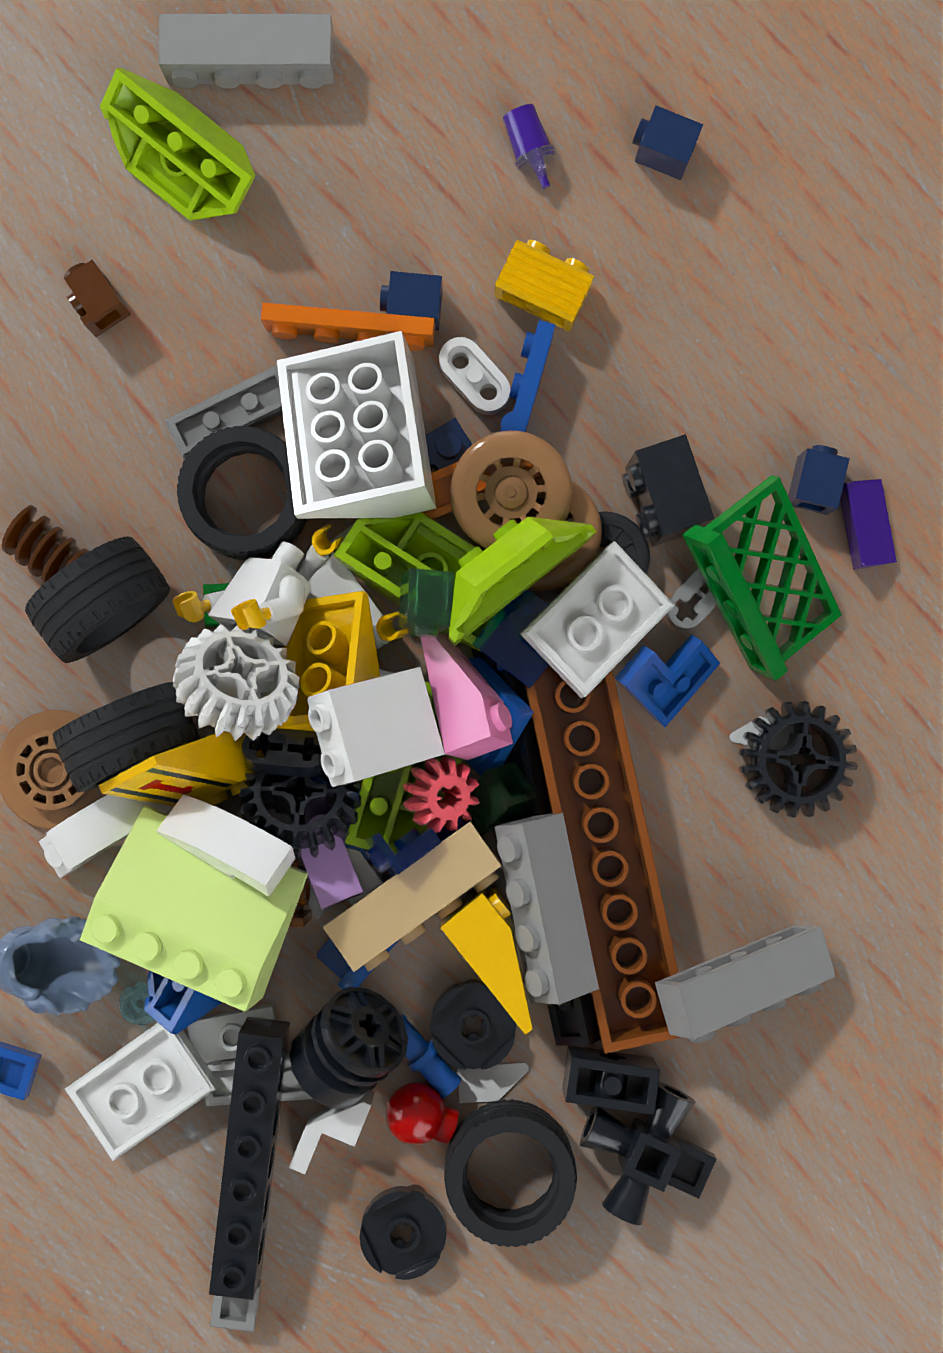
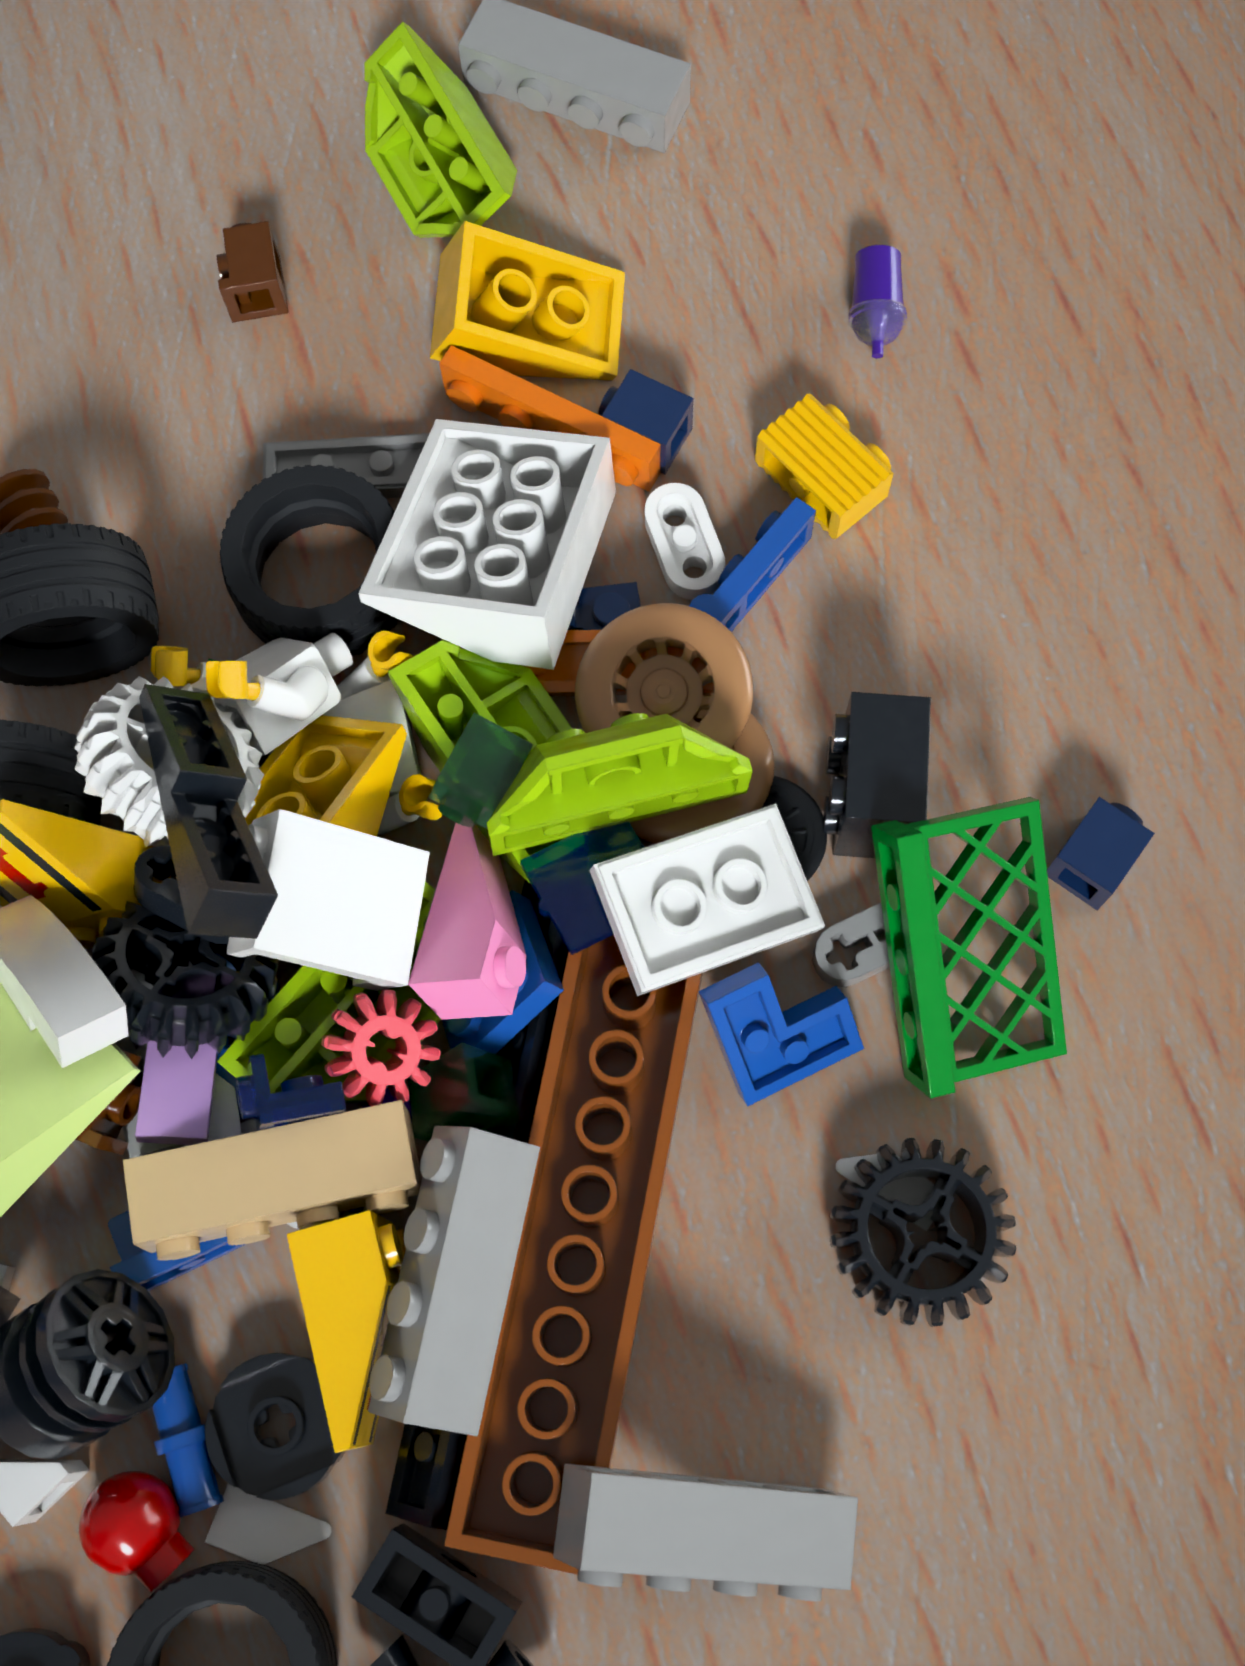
camera: 25 degrees right, 15 degrees down
(272, 697) = (198, 783): none -> black slope
(296, 249) = (527, 307): none -> yellow slope
(666, 142) = (1056, 358): dark blue brick -> none
(867, 524) = (1150, 942): dark purple slope -> none

